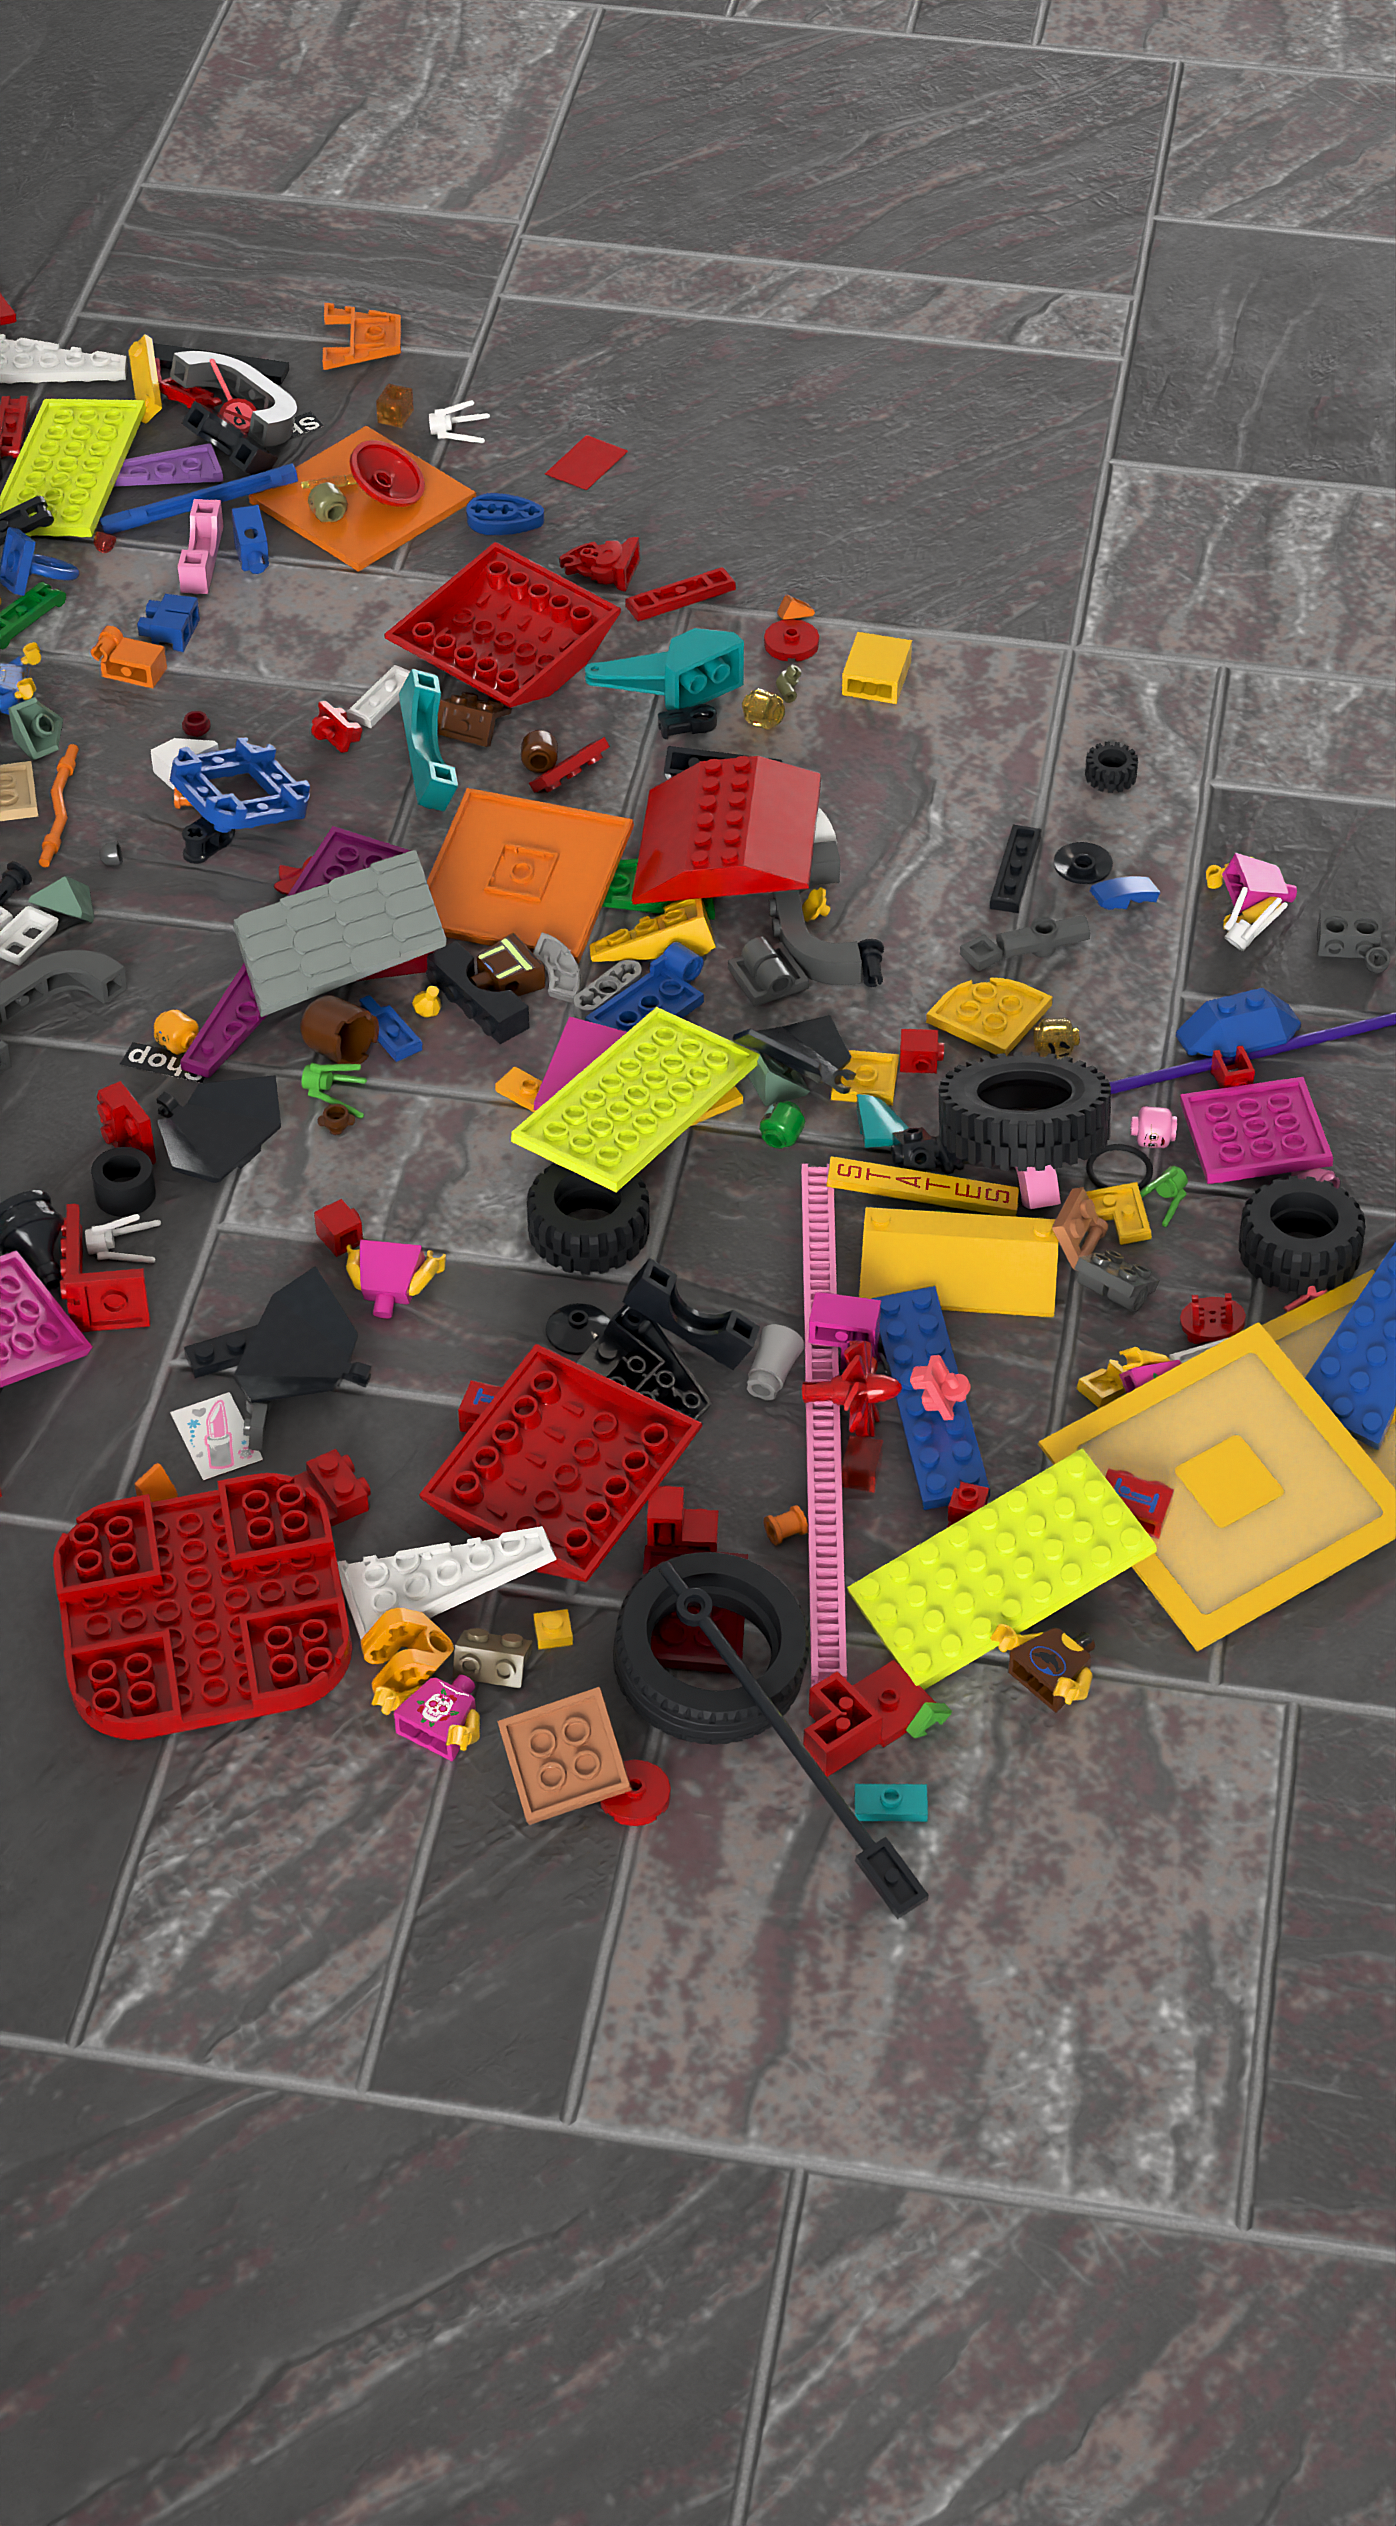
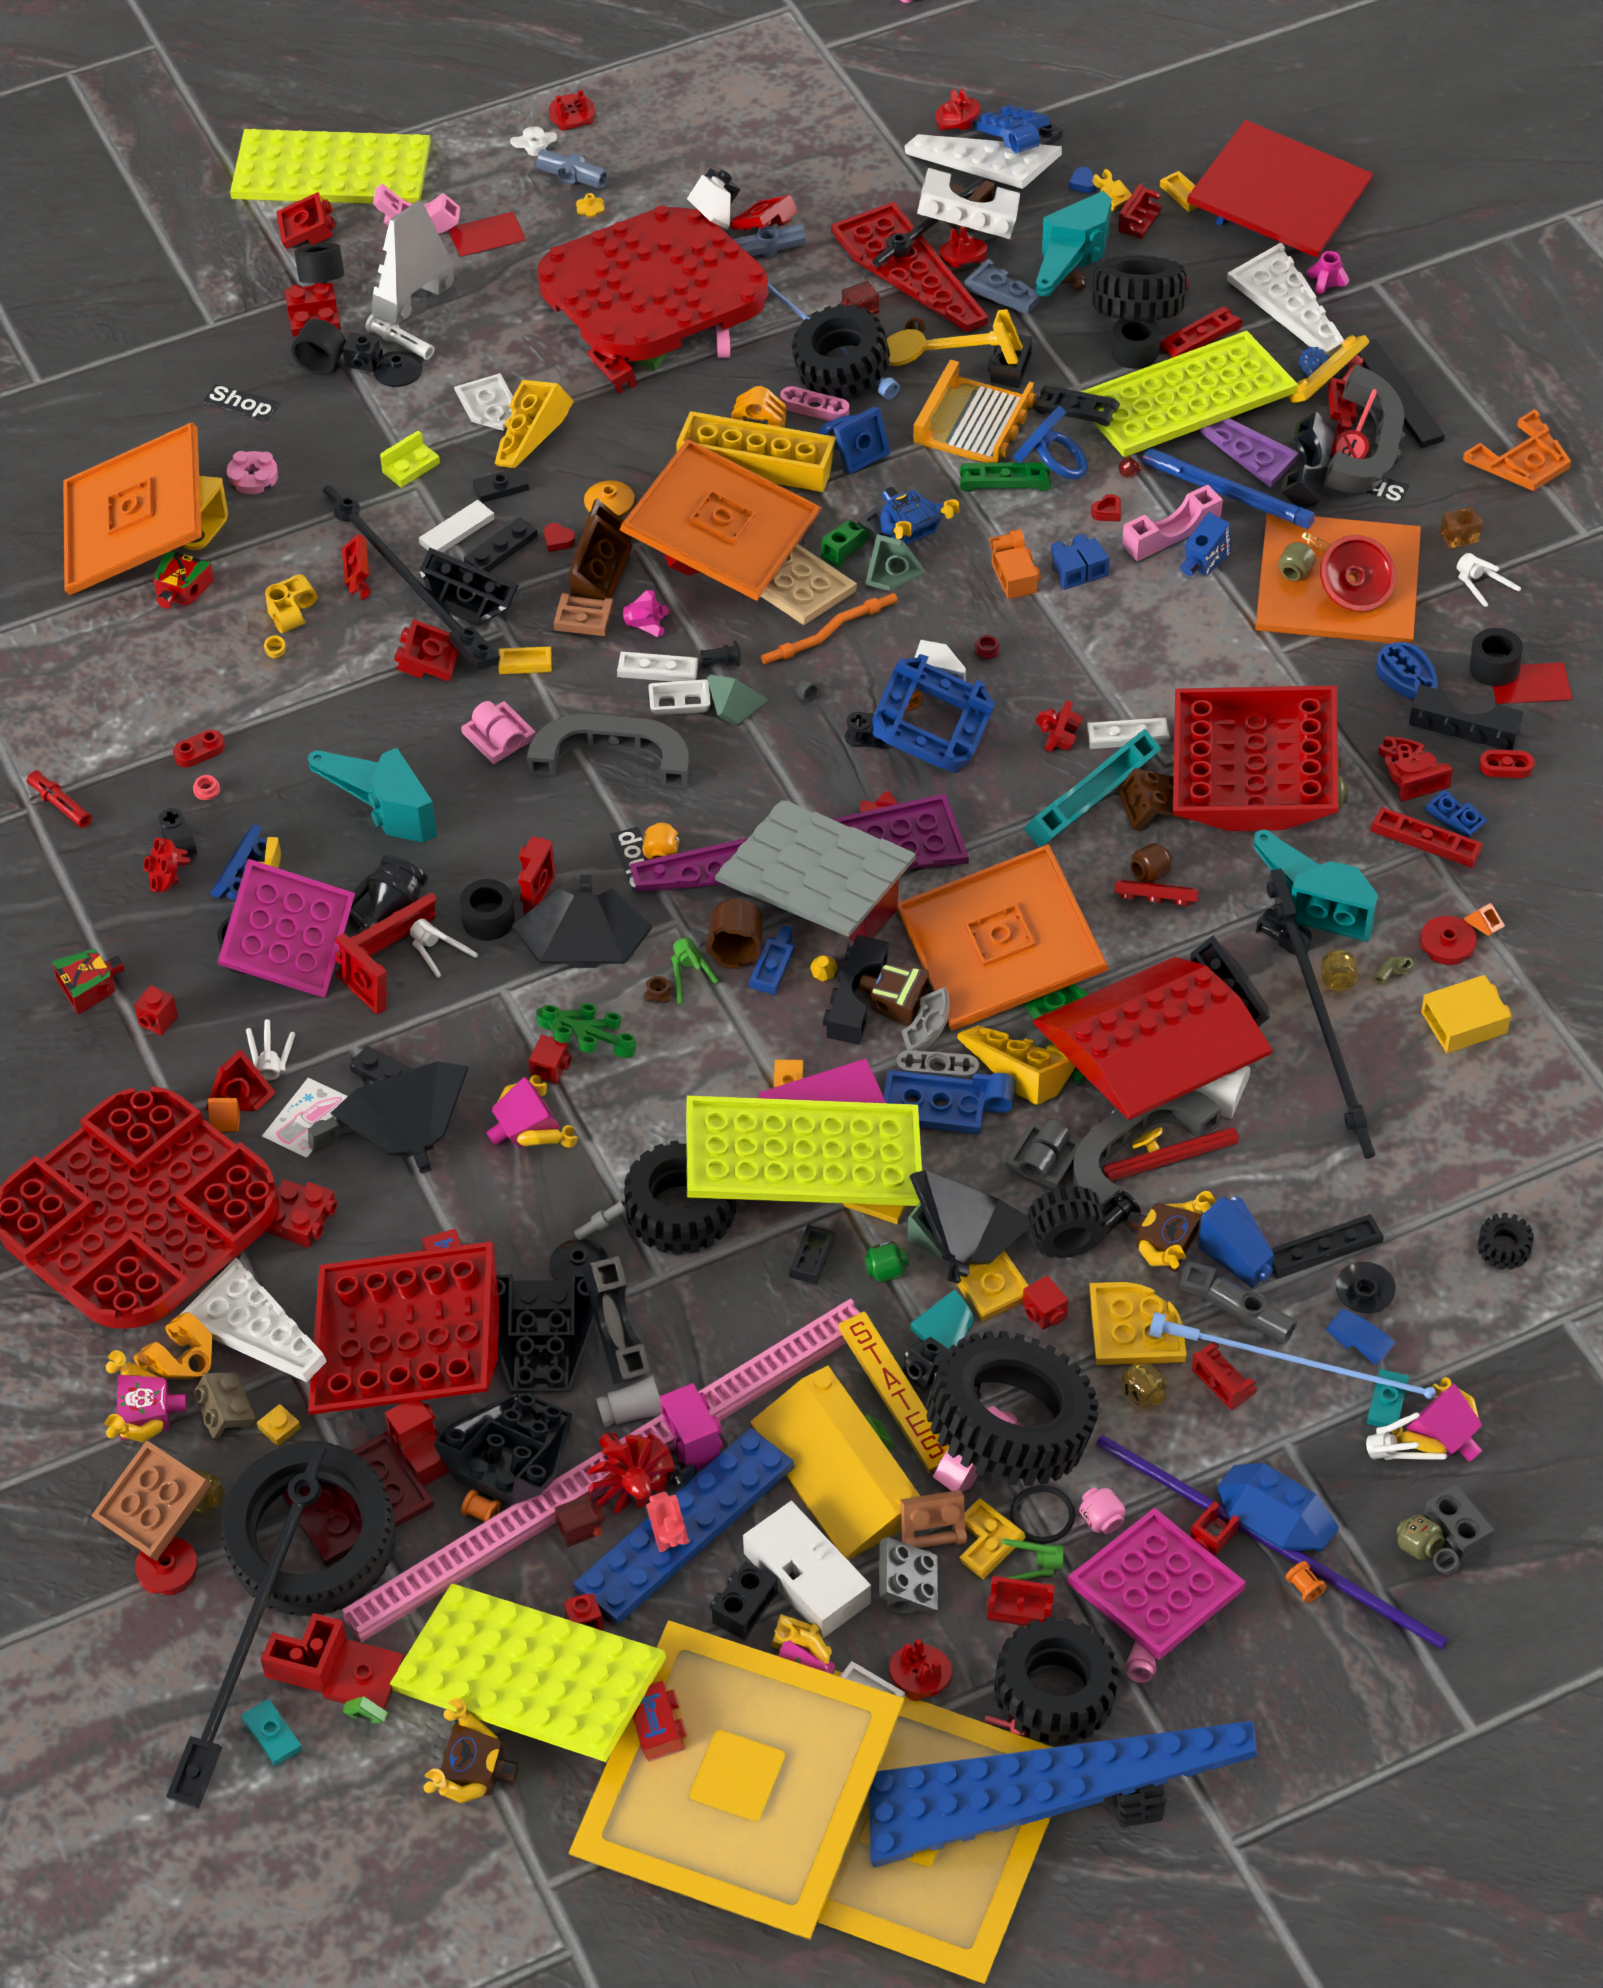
camera: 55 degrees right, 5 degrees up
(41, 322) = (1328, 272): none -> dark pink rock
(123, 384) = (1312, 359): none -> blue piece
(128, 1425) = (268, 1062): none -> white plant
(131, 579) = (1107, 509): none -> red tile
(135, 1456) = (243, 1081): none -> red slope
(332, 1185) = (586, 1030): none -> green plant
(548, 458) = (1496, 670): none -> black piece
(557, 1281) = (601, 1220): none -> light grey bar
(564, 520) = (1494, 728): none -> black arch
(656, 514) = (1506, 763): none -> red plate
(670, 571) = (1454, 815): none -> blue slope
(684, 701) = (1286, 912): none -> black bar
(726, 1168) = (812, 1254): none -> black plate
(751, 1468) = (506, 1447): none -> black wedge
(842, 897) = (1171, 1154): none -> red axle
(863, 986) = (1067, 1221): none -> black tyre
(921, 940) = (1169, 1230): none -> torso
(972, 908) = (1236, 1241): none -> blue slope
(1015, 990) = (1160, 1325): none -> light blue piece
(1044, 1395) = (750, 1602): none -> black brick
(1049, 1336) = (807, 1568): none -> white brick
(1089, 992) = (1222, 1376): none -> red hinge
(1195, 912) = (1387, 1400): none -> teal plate
(1199, 1223) = (1019, 1601): none -> red hinge
(1327, 1047) = (1306, 1582): none -> orange bush
(1343, 961) = (1420, 1537): none -> olive head

